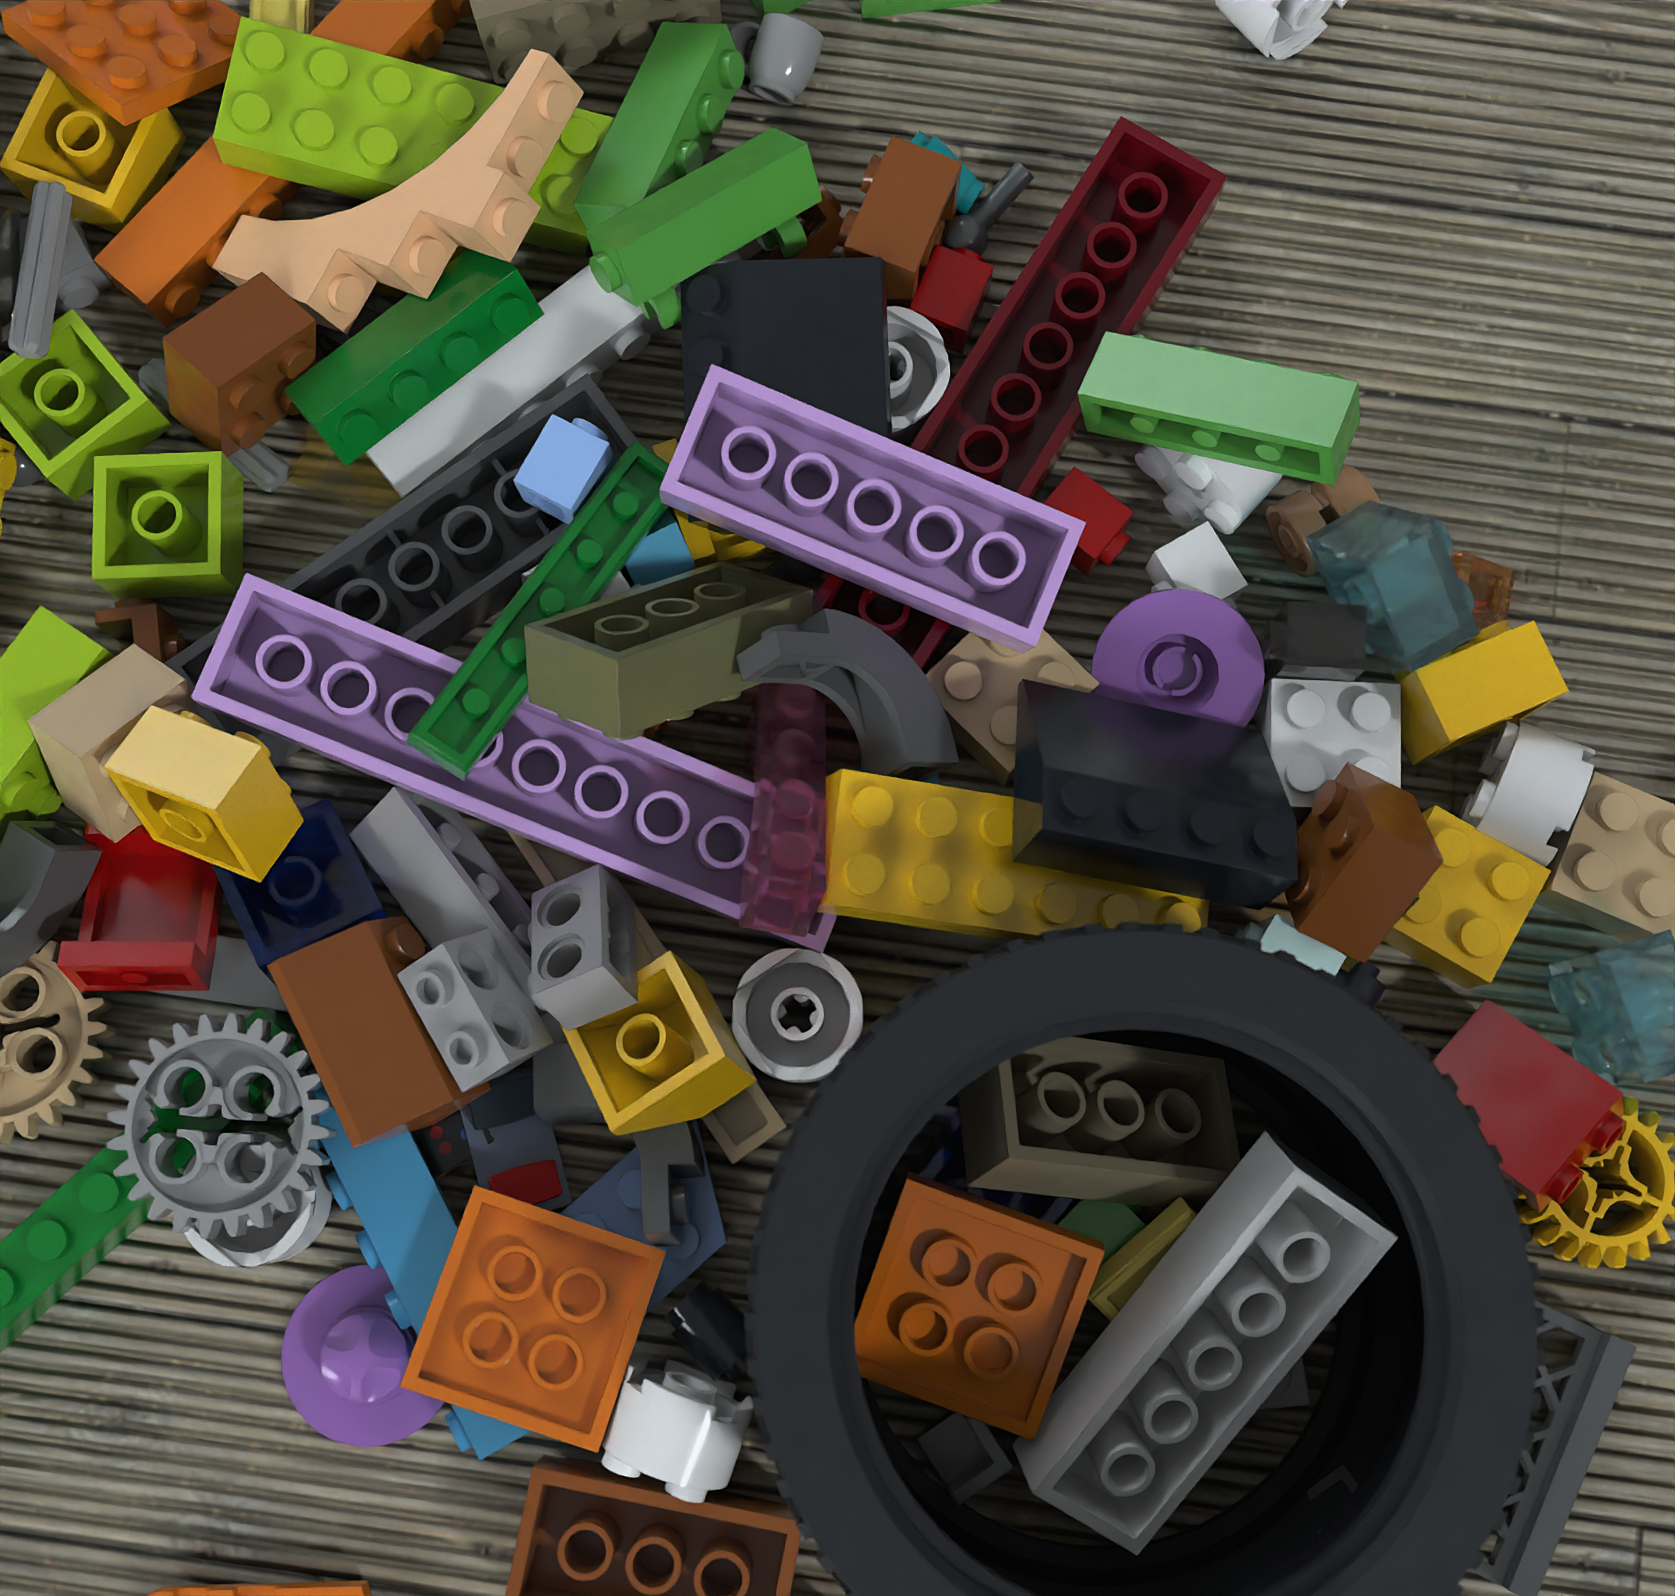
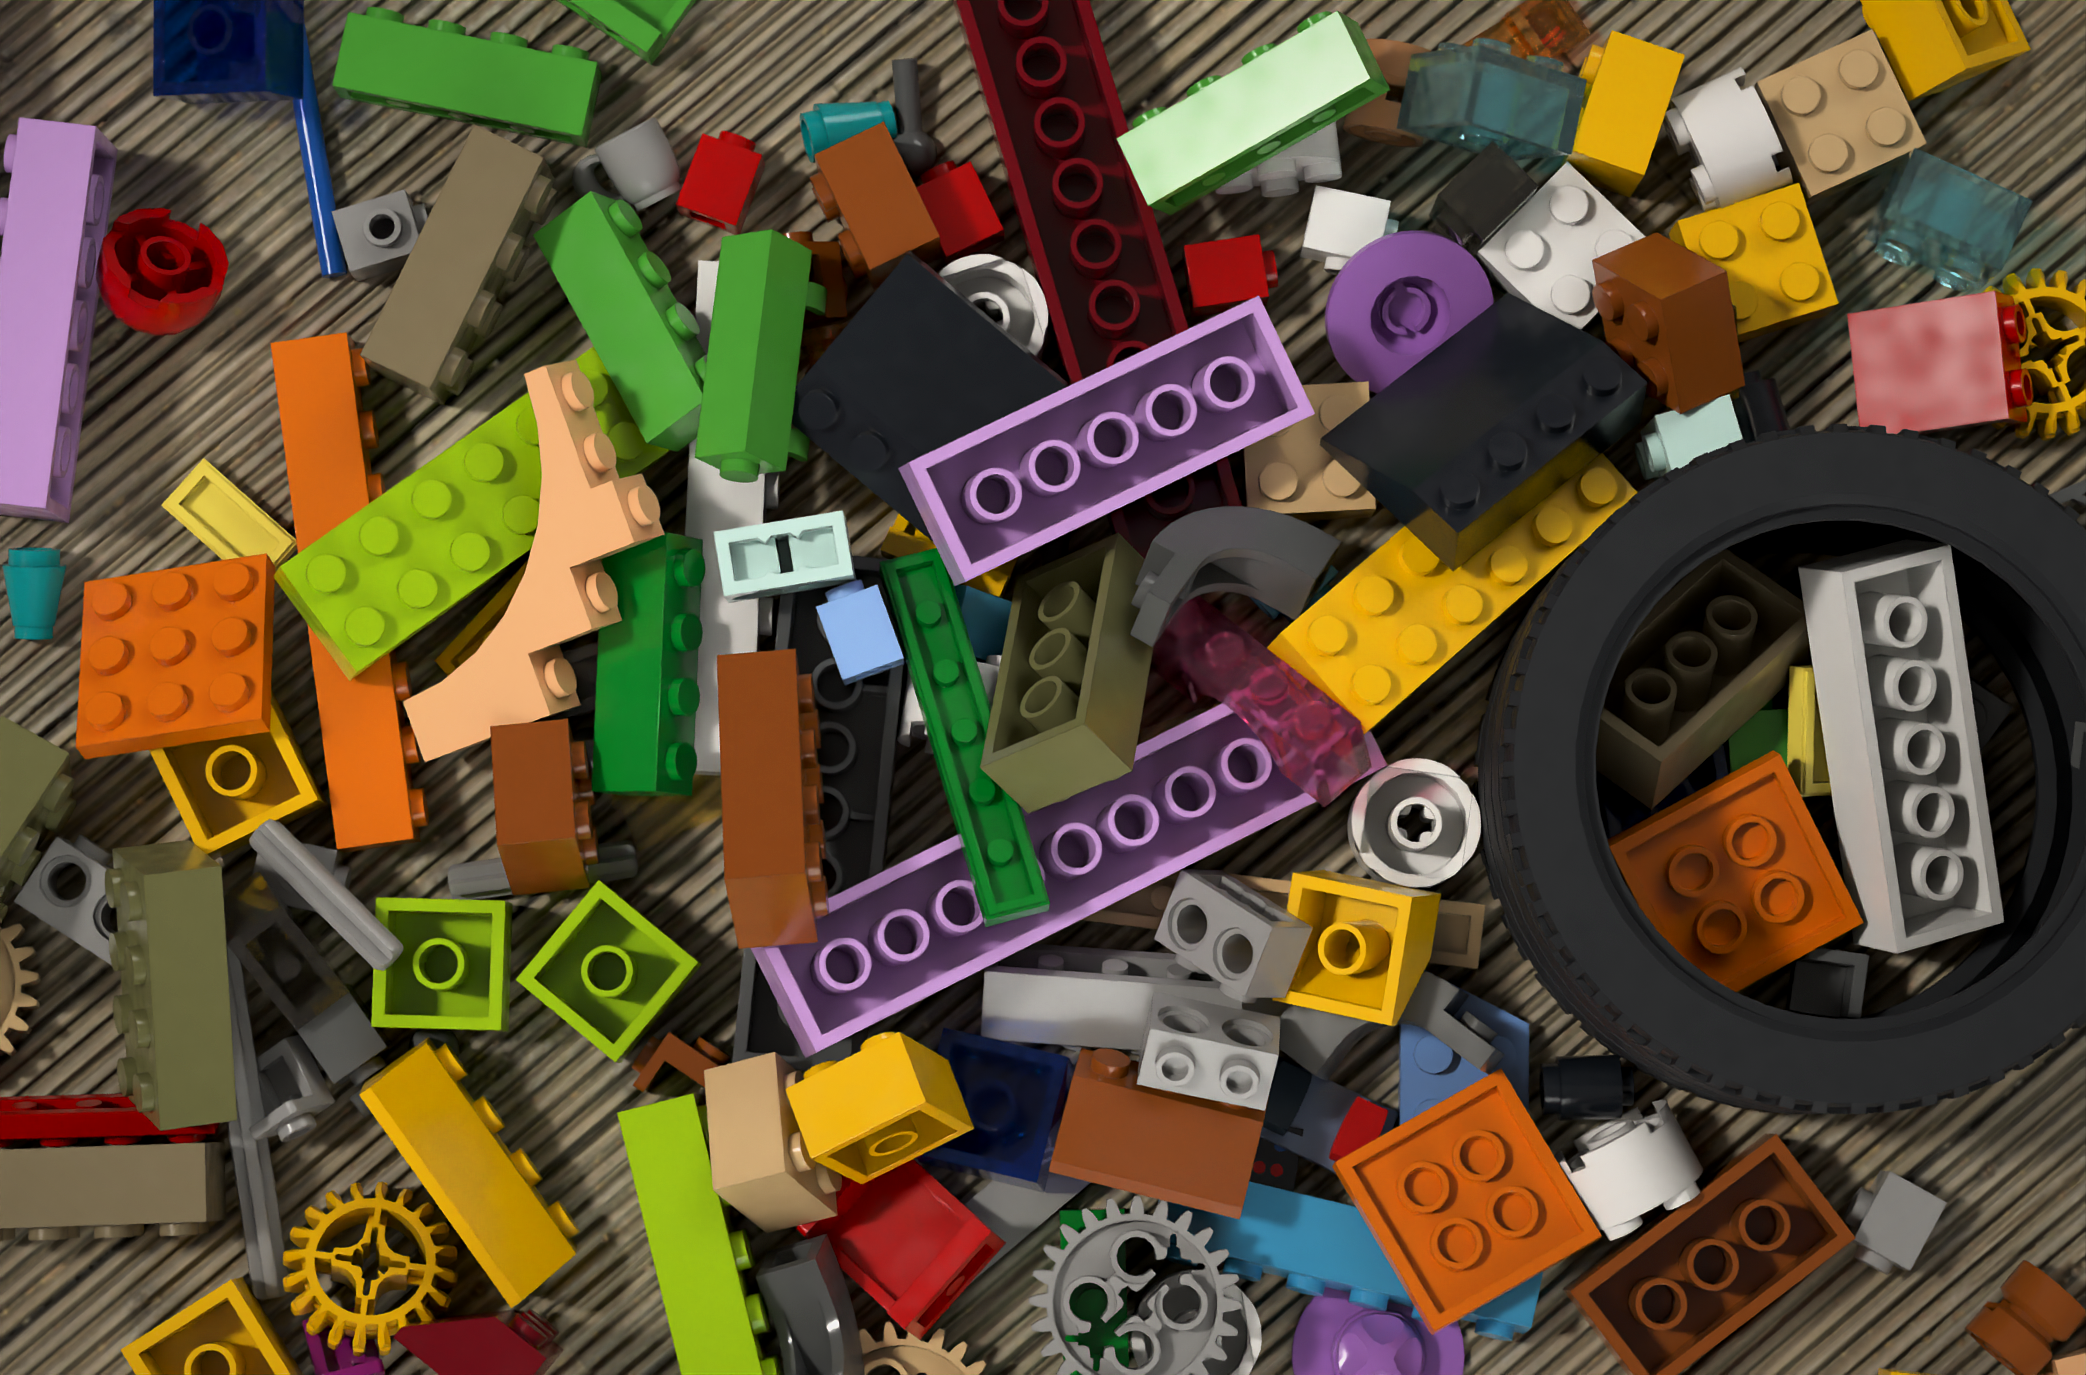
camera: 50 degrees left, 5 degrees up
(355, 490) = (771, 798): none -> dark orange brick
(571, 361) = (784, 556): none -> light aqua brick
(824, 117) = (721, 182): none -> red brick

